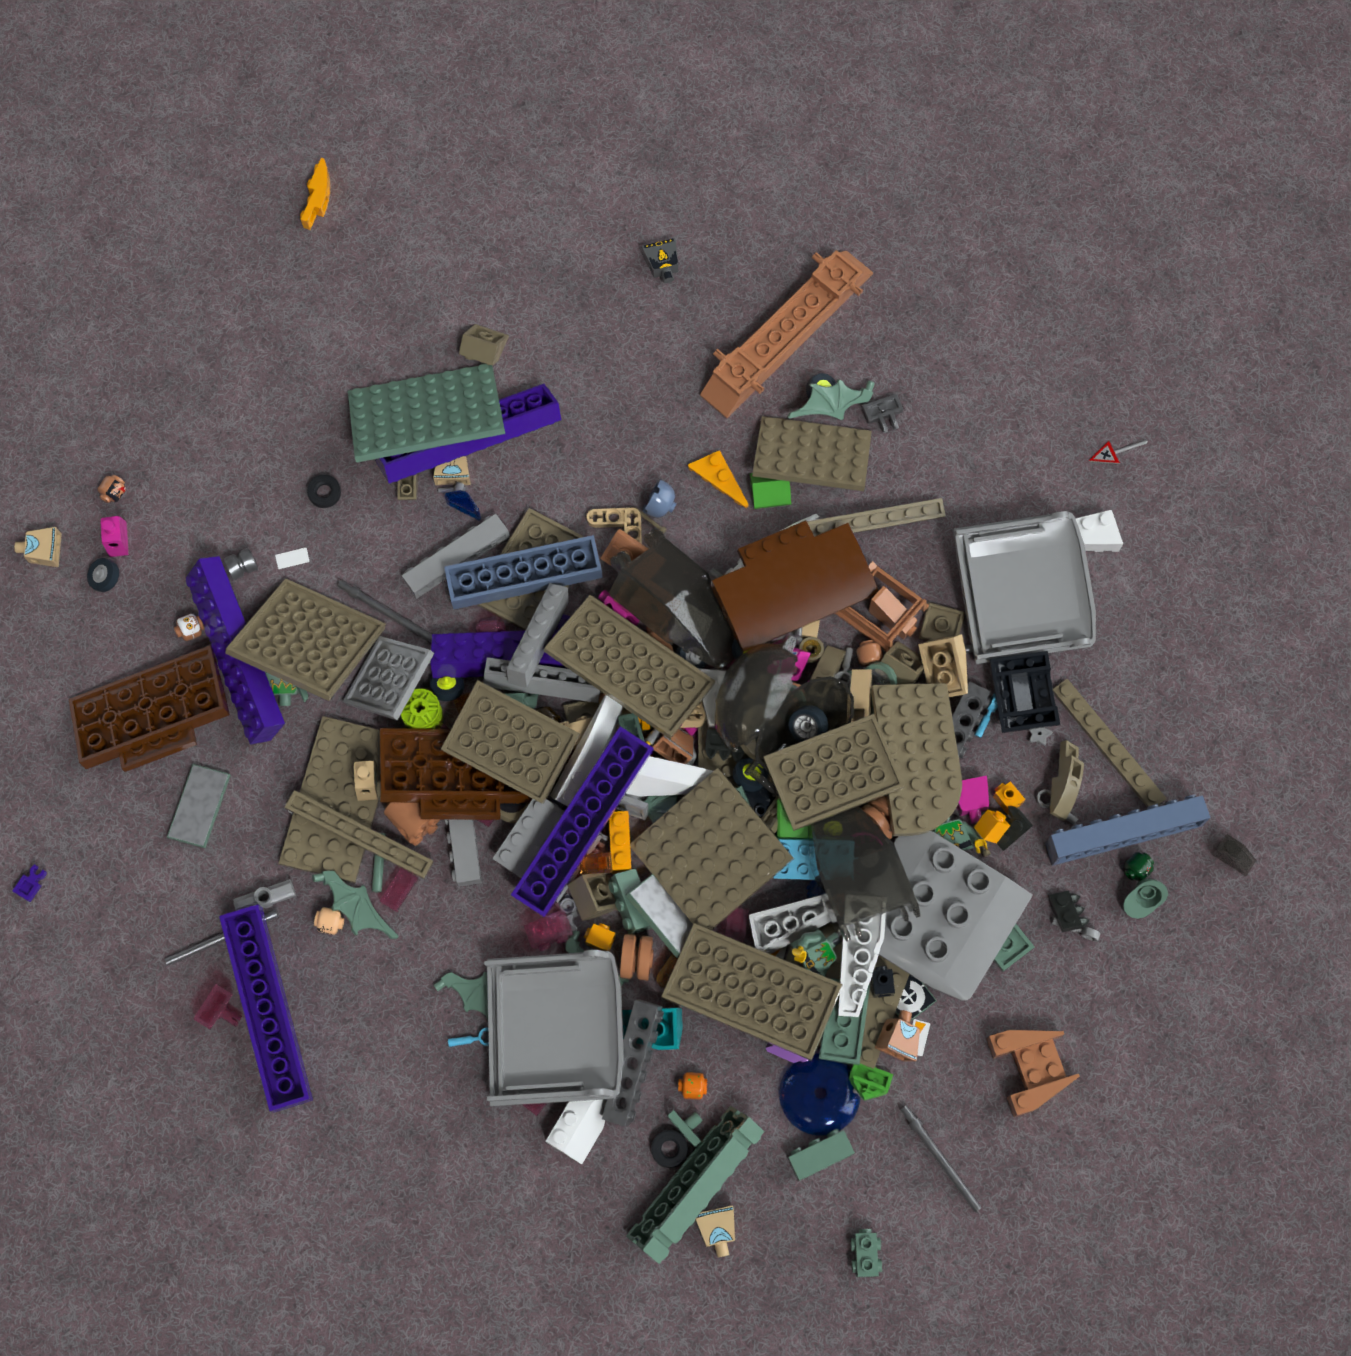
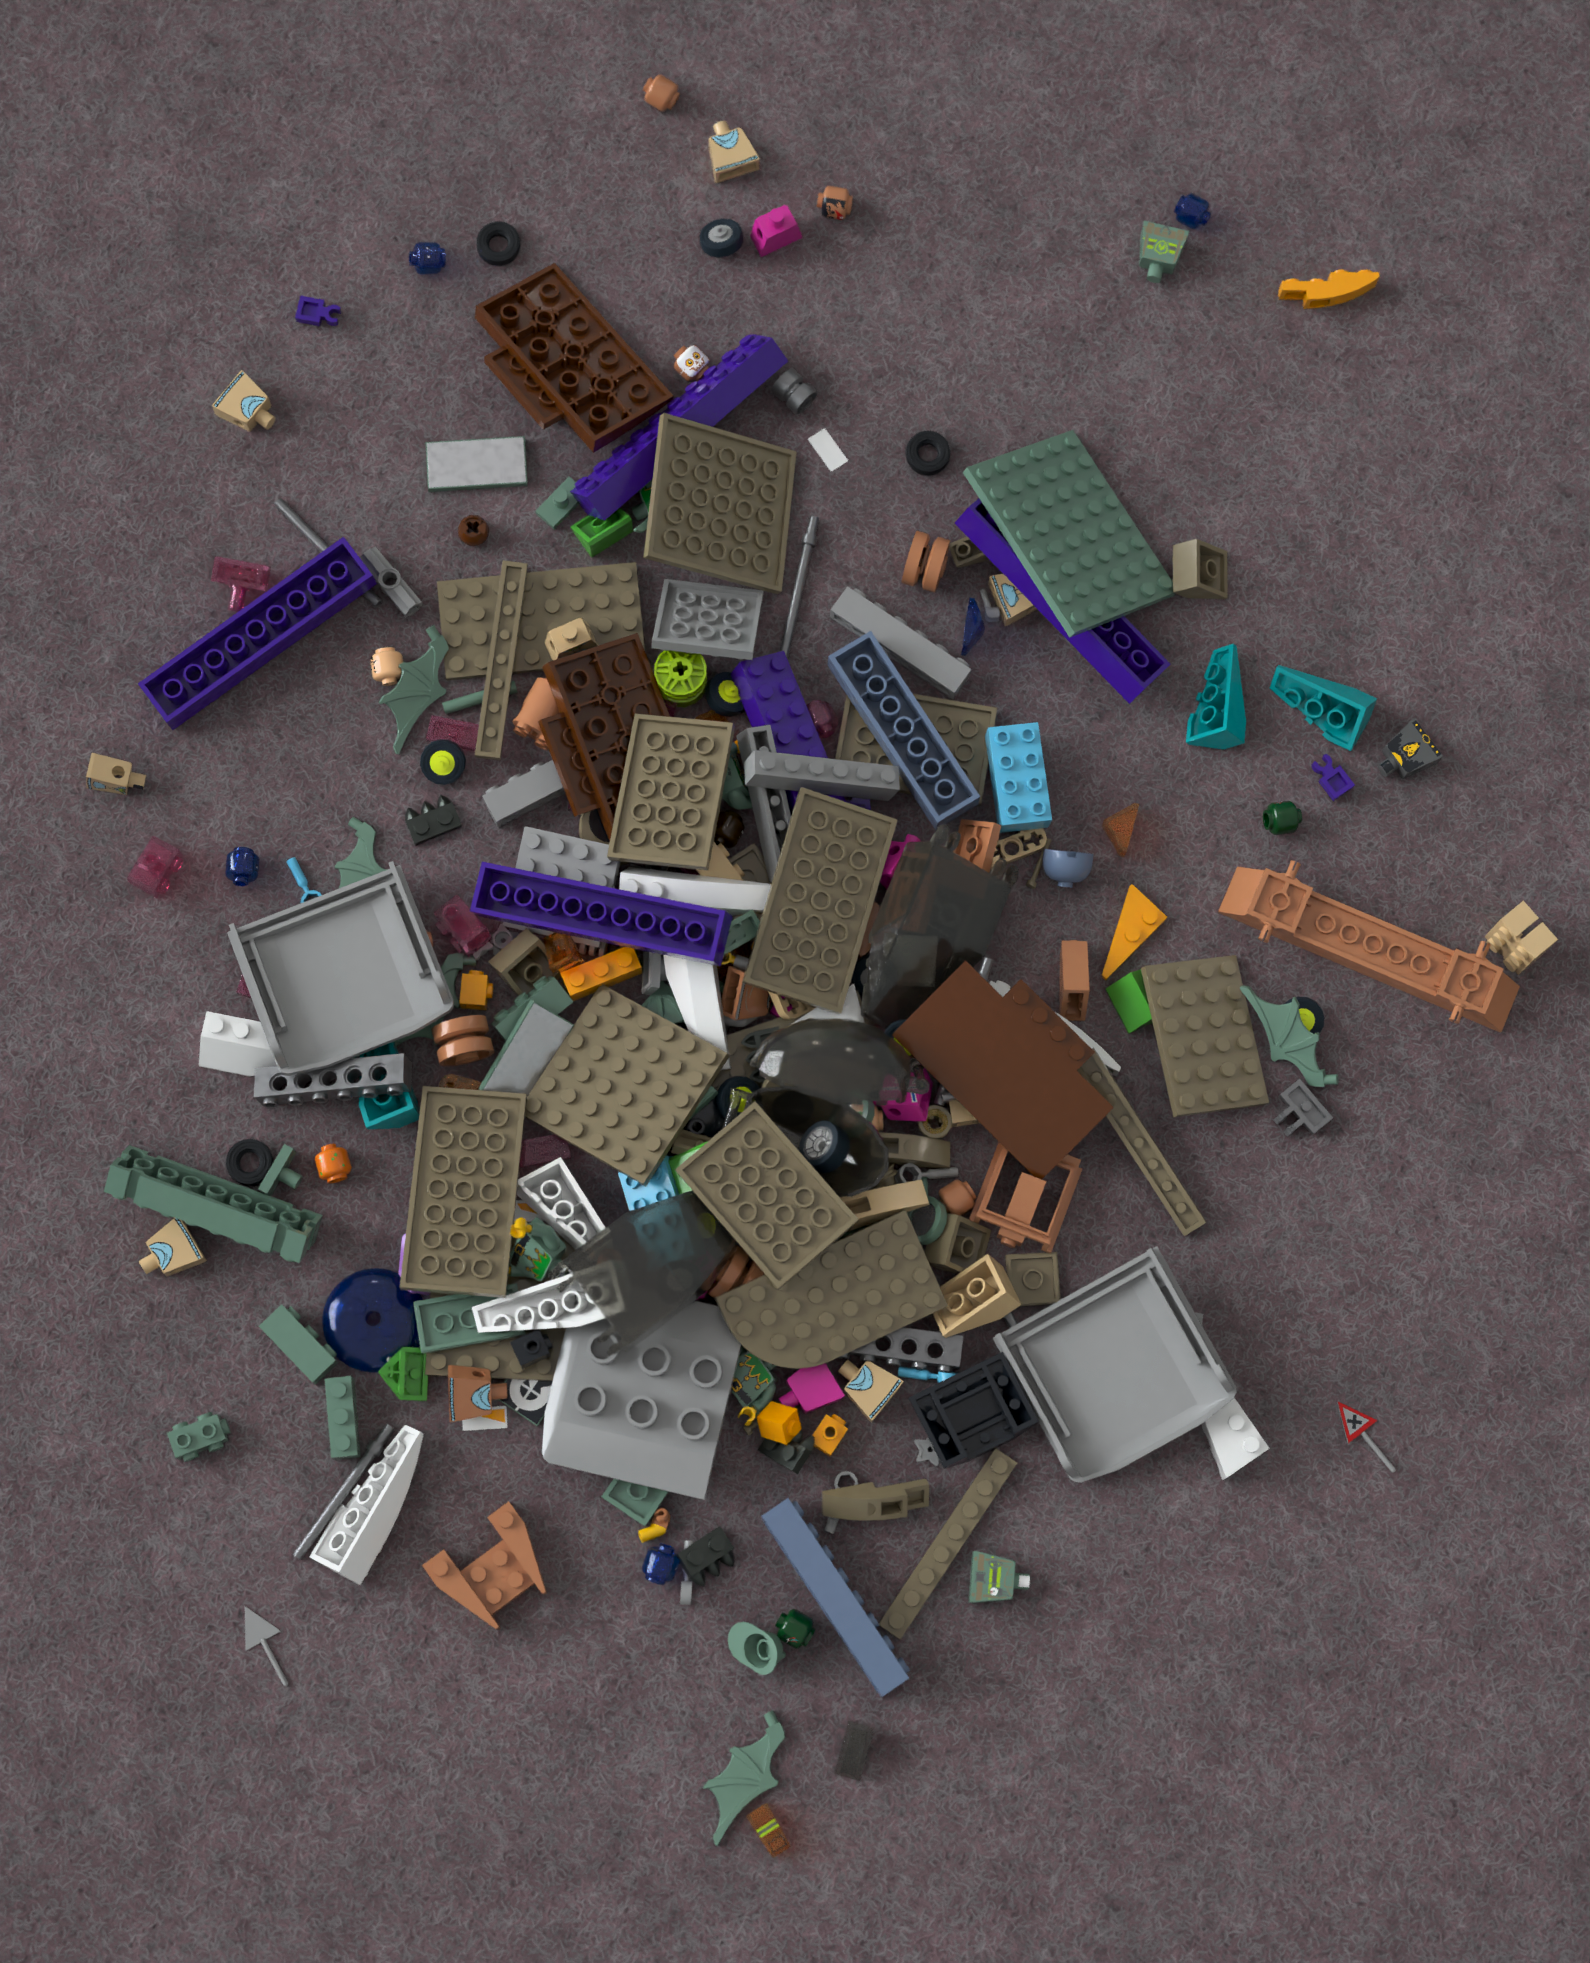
camera: 65 degrees right, 5 degrees up
(24, 787) = (427, 258): none -> clear blue head
(43, 742) = (494, 229): none -> black tyre
(79, 961) = (244, 404): none -> tan torso
(224, 259) = (1192, 211): none -> clear blue head
(241, 289) = (1160, 249): none -> sand green torso
(243, 824) = (473, 522): none -> reddish brown piece
(254, 757) = (558, 504): none -> sand green tile
(289, 736) = (600, 534): none -> bright green slope
(328, 1163) = (102, 772): none -> tan torso
(405, 516) = (922, 560): none -> nougat wheel
(416, 1147) = (155, 867): none -> clear pink brick
(418, 904) = (442, 761): none -> black wheel
(440, 1080) = (242, 866): none -> clear blue head
(459, 928) = (432, 821): none -> pearl dark grey plate
(586, 508) = (1018, 777): none -> medium azure brick
(587, 366) = (1221, 709): none -> teal wedge
(611, 296) = (1330, 705): none -> teal wedge
(647, 457) = (1120, 827): none -> clear orange slope
(664, 312) = (1335, 780): none -> dark purple plate
(678, 353) = (1282, 818): none -> dark green head
(741, 523) = (1074, 980): none -> nougat slope
(814, 237) = (1507, 940): none -> tan piece
(887, 1140) = (342, 1418): none -> sand green brick
(967, 1147) = (364, 1524): none -> white wedge
(984, 758) = (869, 1387): none -> tan torso
(1024, 1258) = (257, 1632): none -> light grey piece
(1037, 939) = (658, 1526): none -> arm
(1065, 945) = (660, 1564): none -> clear blue head
(1143, 721) = (994, 1578): none -> torso
(1230, 936) = (745, 1775): none -> sand green animal
(1274, 933) = (768, 1830): none -> clear orange leg

